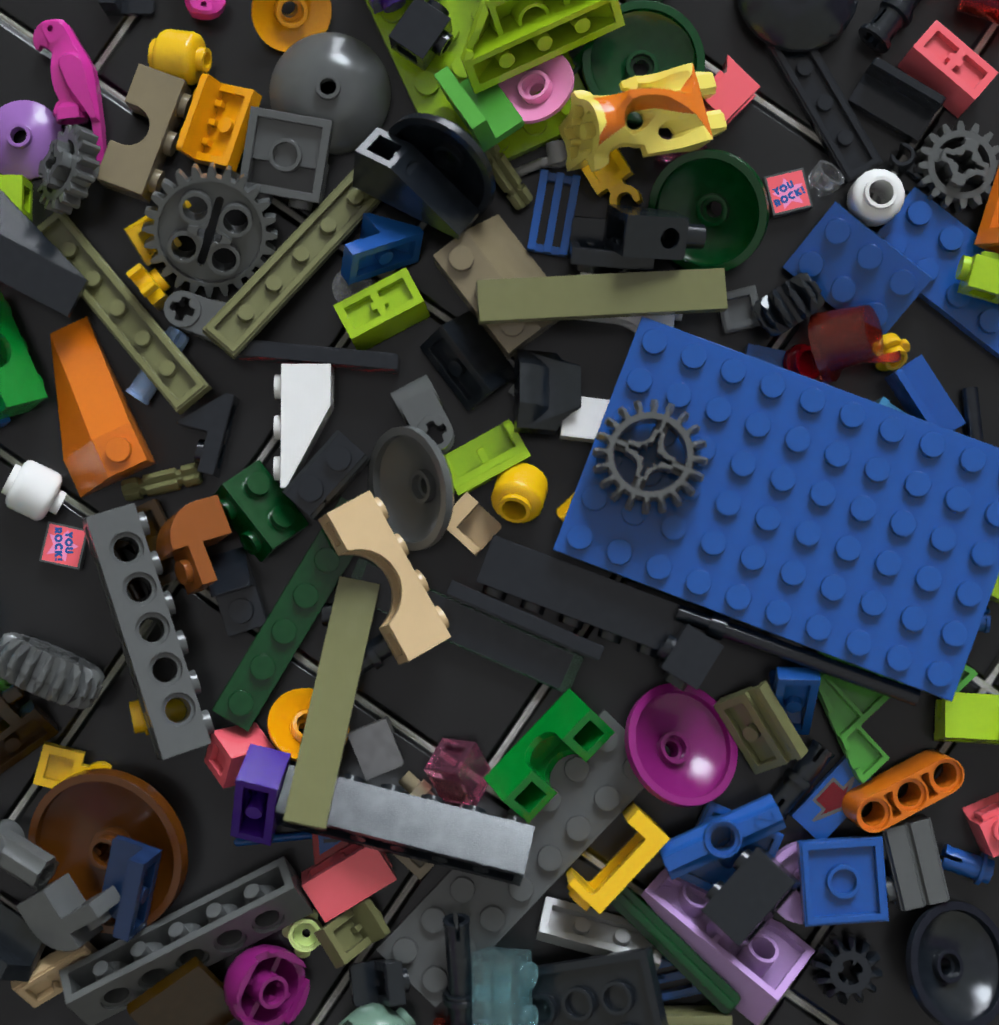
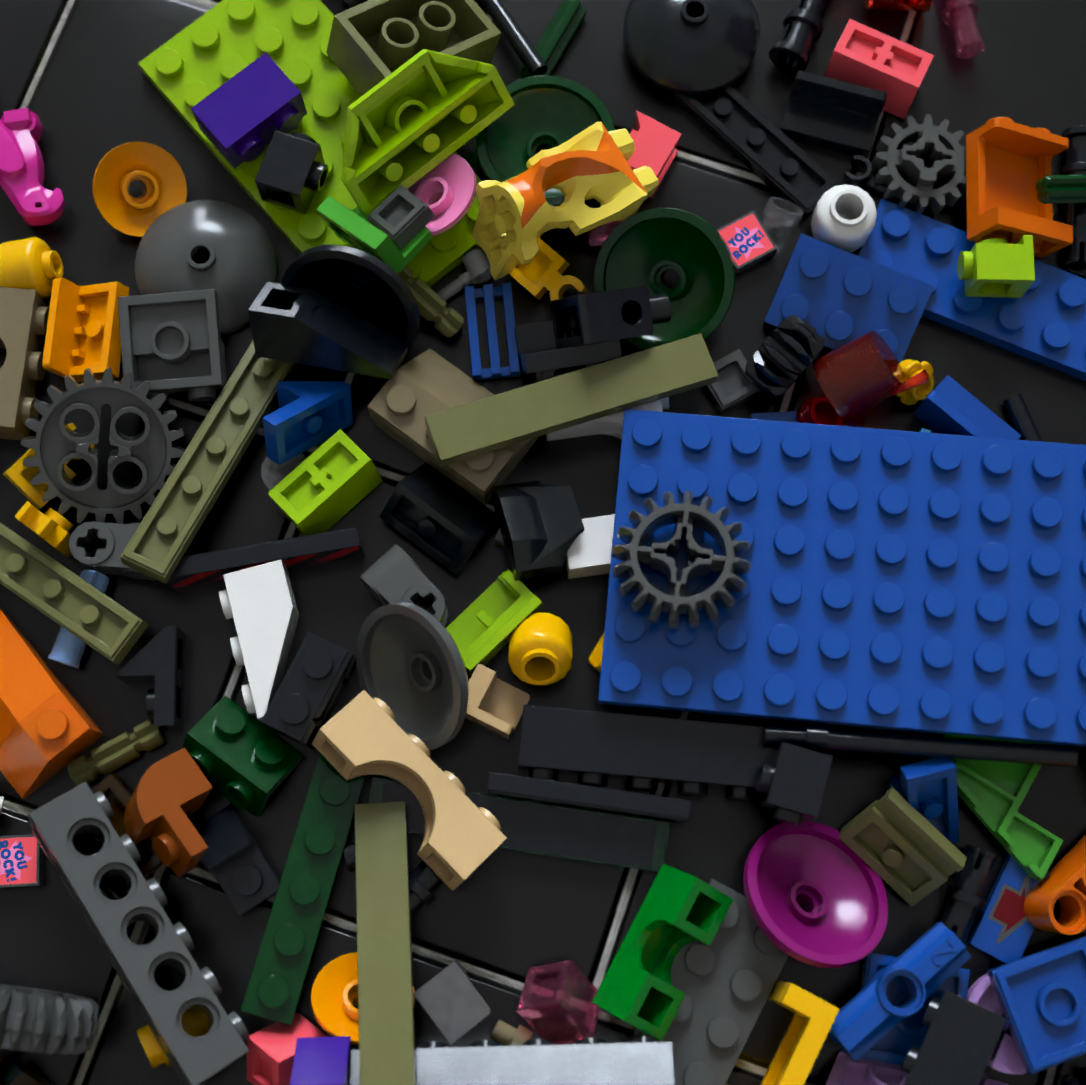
camera: 15 degrees left, 10 degrees down
(502, 100) = (401, 216): none -> dark grey tile

